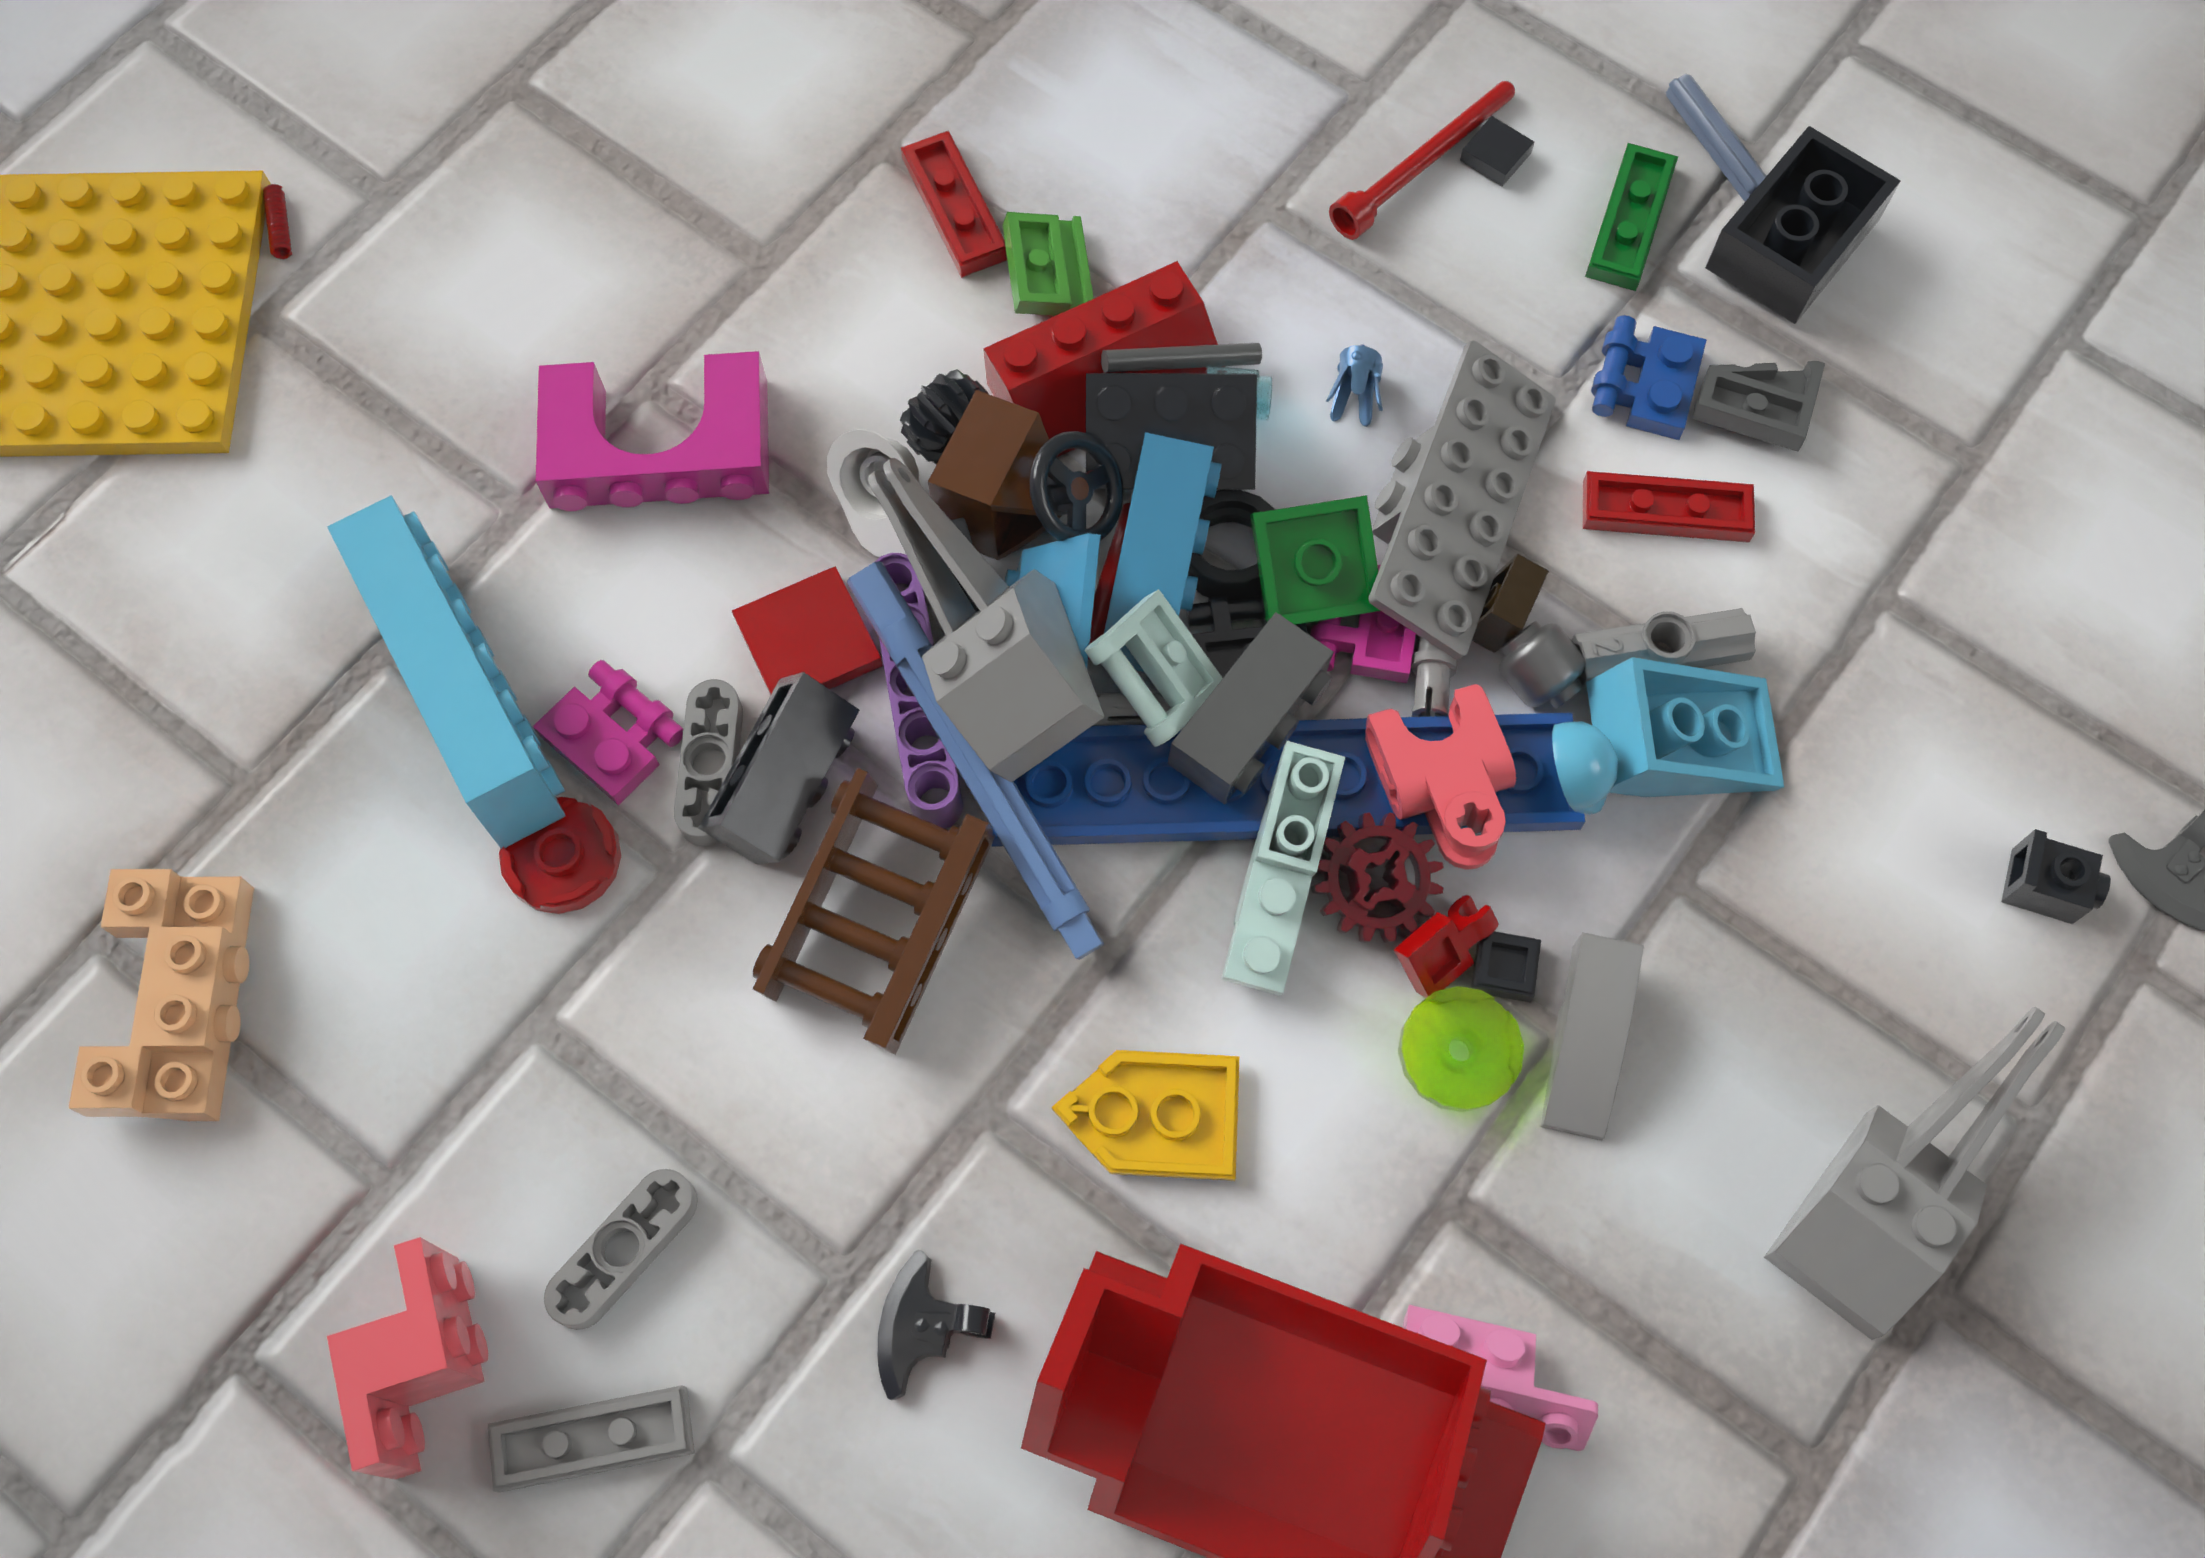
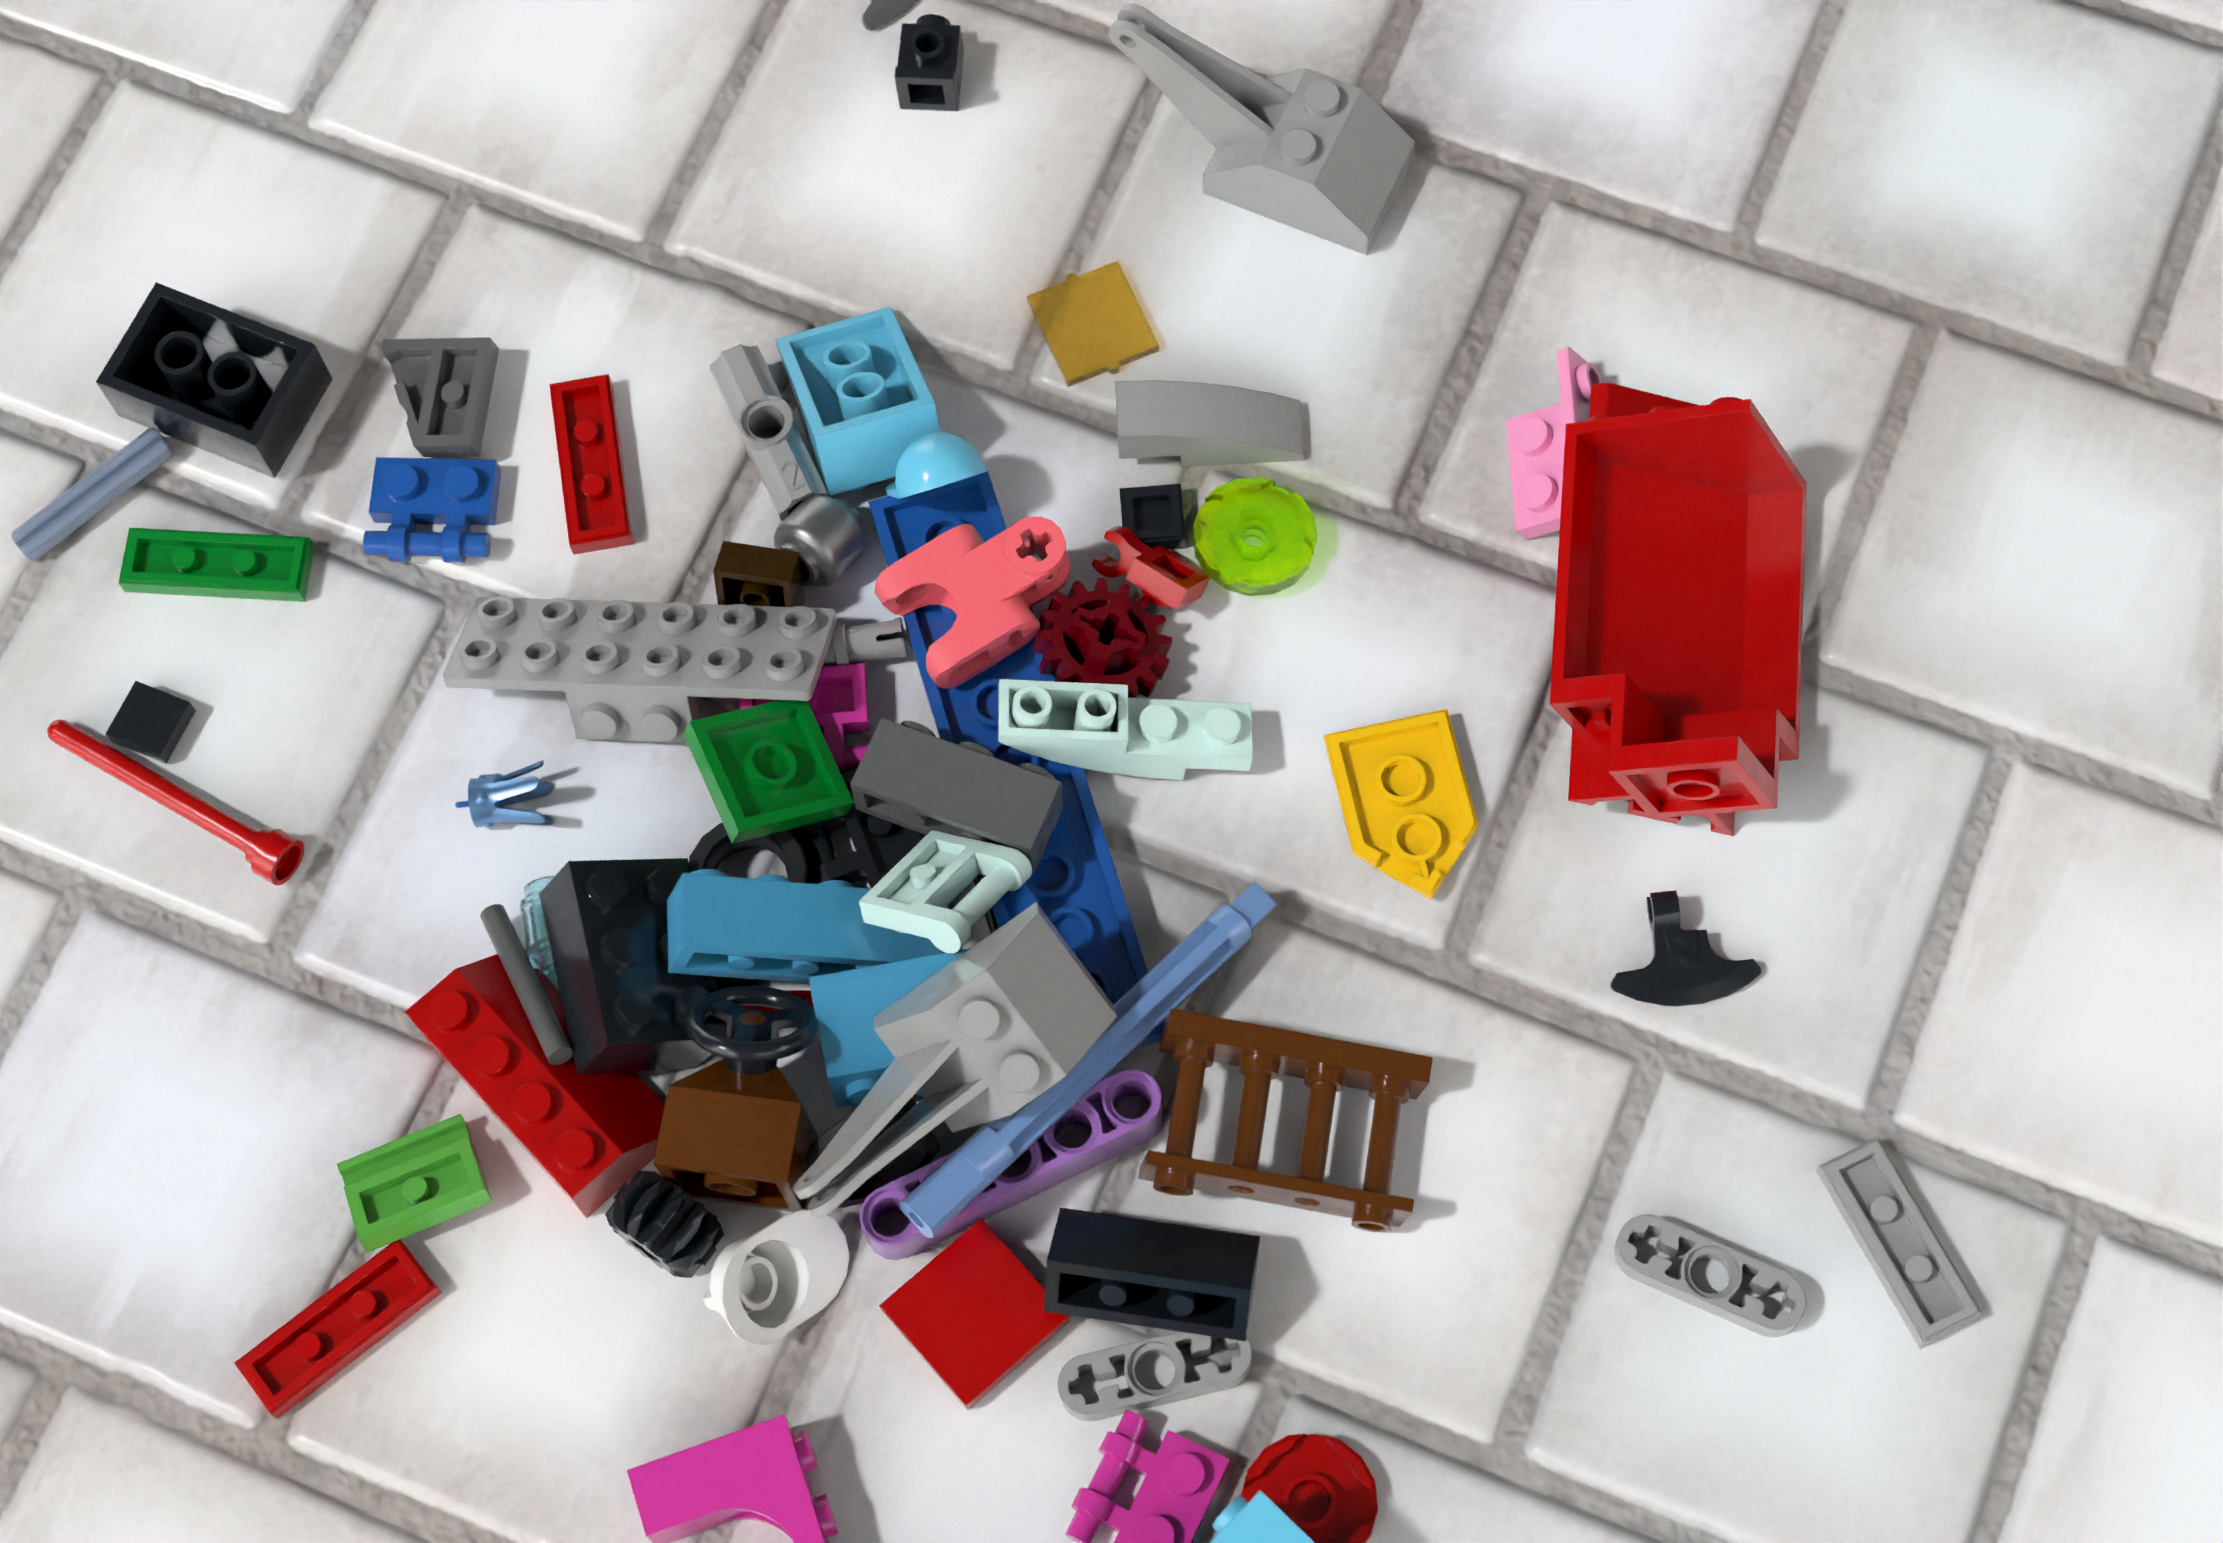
camera: 100 degrees left, 0 degrees up
(407, 1361) = (1898, 1421): coral bracket -> none
(1732, 966) = (1092, 323): none -> clear yellow piece

